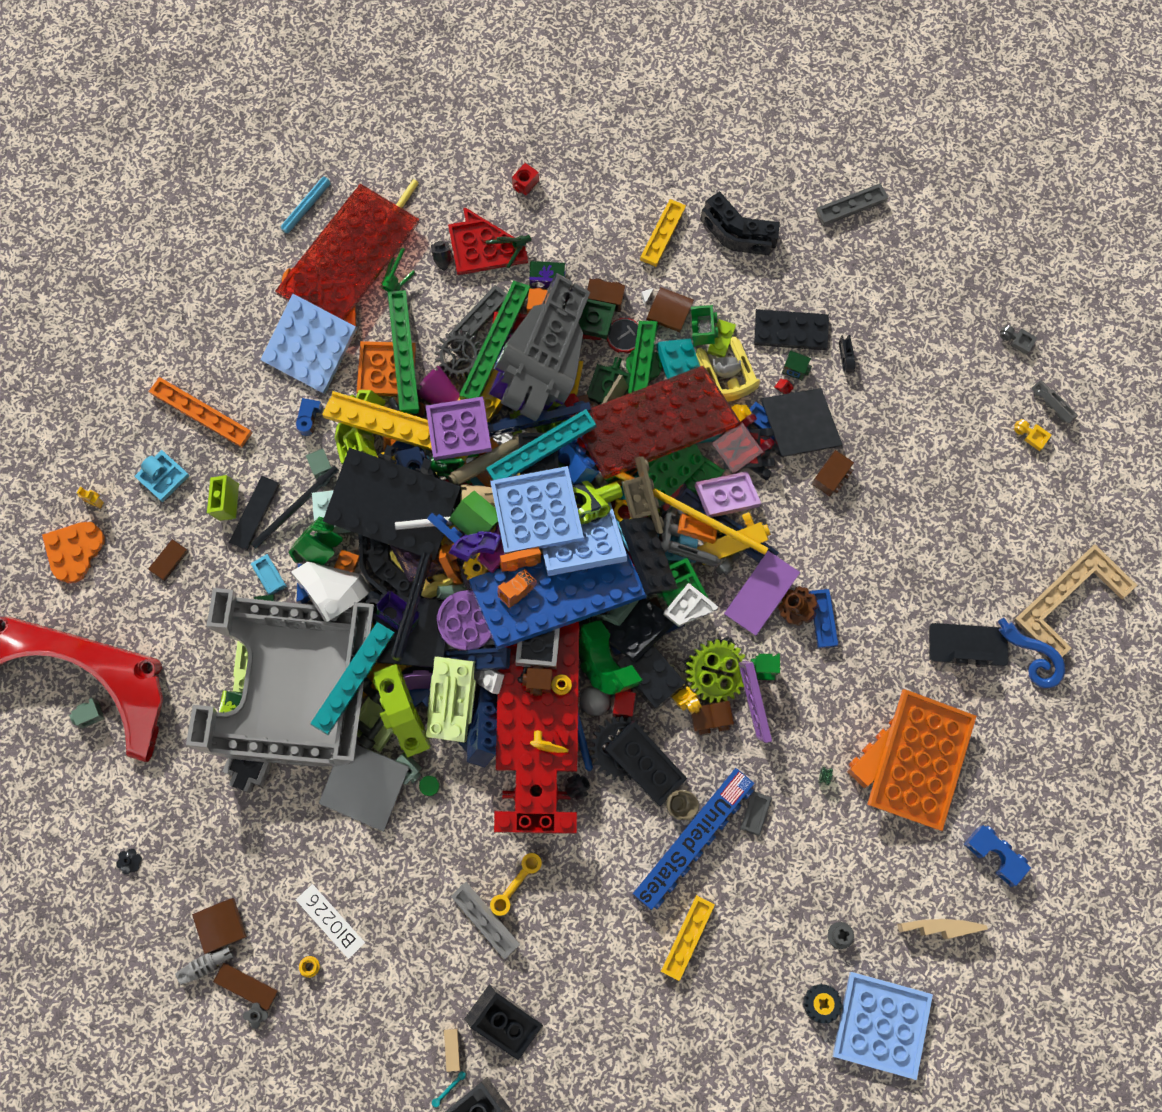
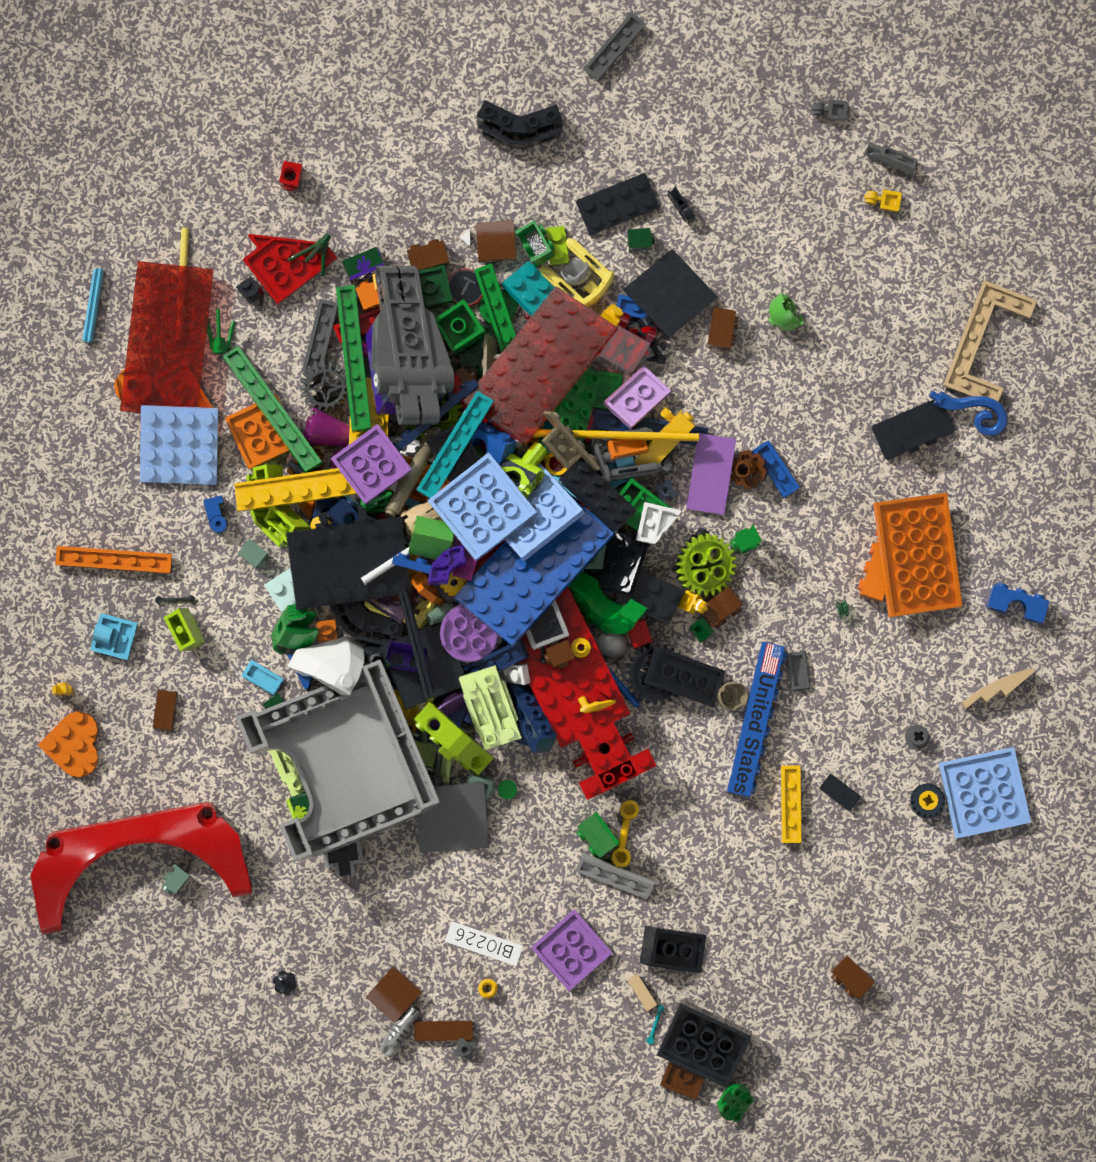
camera: 30 degrees left, 10 degrees up
(219, 465) = (159, 600): none -> black hinge
(254, 513) = (217, 628): black tile -> none
(322, 481) = (266, 568): black bar -> none
(352, 679) = (400, 733): teal plate -> none
(407, 971) = (571, 950): none -> medium lavender plate
(488, 872) = (597, 835): none -> green slope
(515, 560) = (486, 562): orange plate -> none
(516, 588) = (502, 585): orange leg -> none
(577, 786) = (635, 725): black gear -> none
(601, 359) = (460, 327): none -> green brick
(663, 232) = (450, 165): yellow plate -> none
(684, 729) = (701, 629): none -> dark green plate
(717, 588) = (660, 489): none -> sand blue plate
(740, 951) = (839, 792): none -> black tile
(755, 701) = (751, 576): medium lavender tile -> none
(784, 386) = (637, 264): red piece -> none
(896, 486) = (784, 314): none -> bright green cylinder

